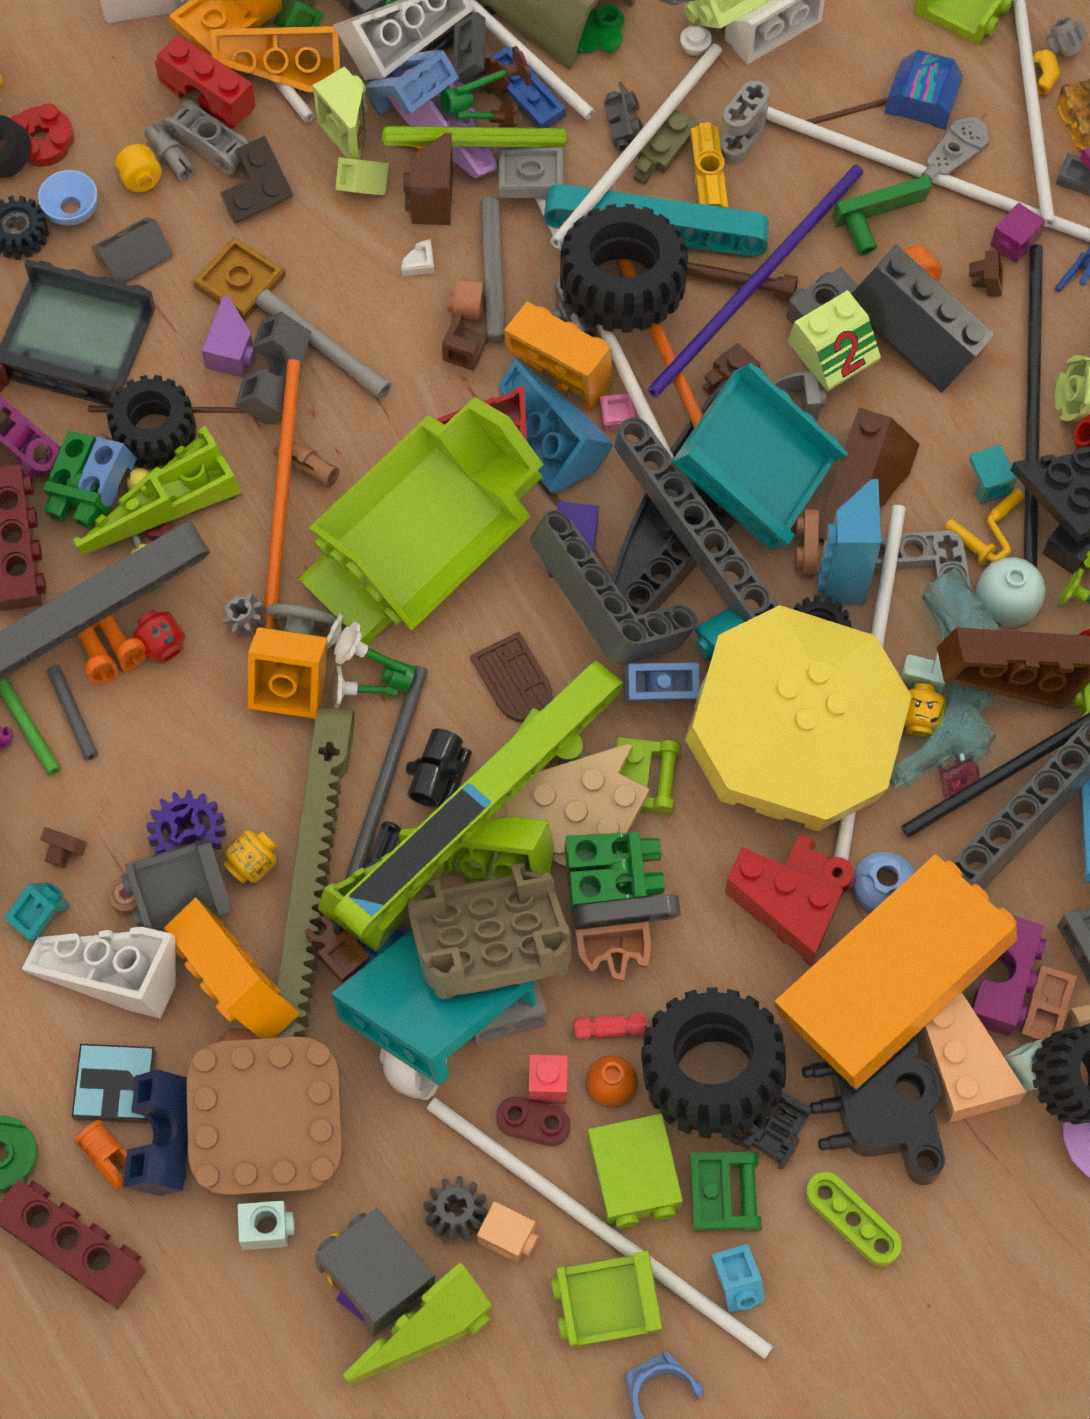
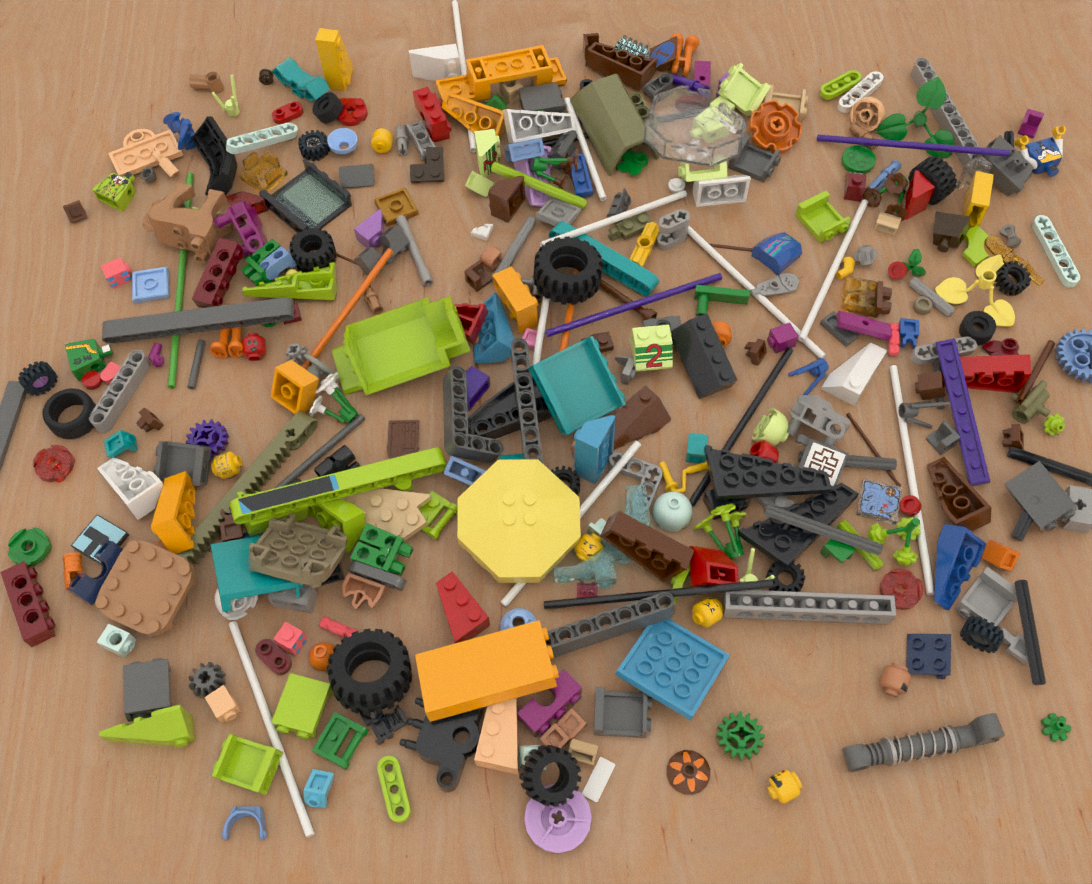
camera: 30 degrees right, 5 degrees down
(833, 870) = (483, 595): red leg -> none

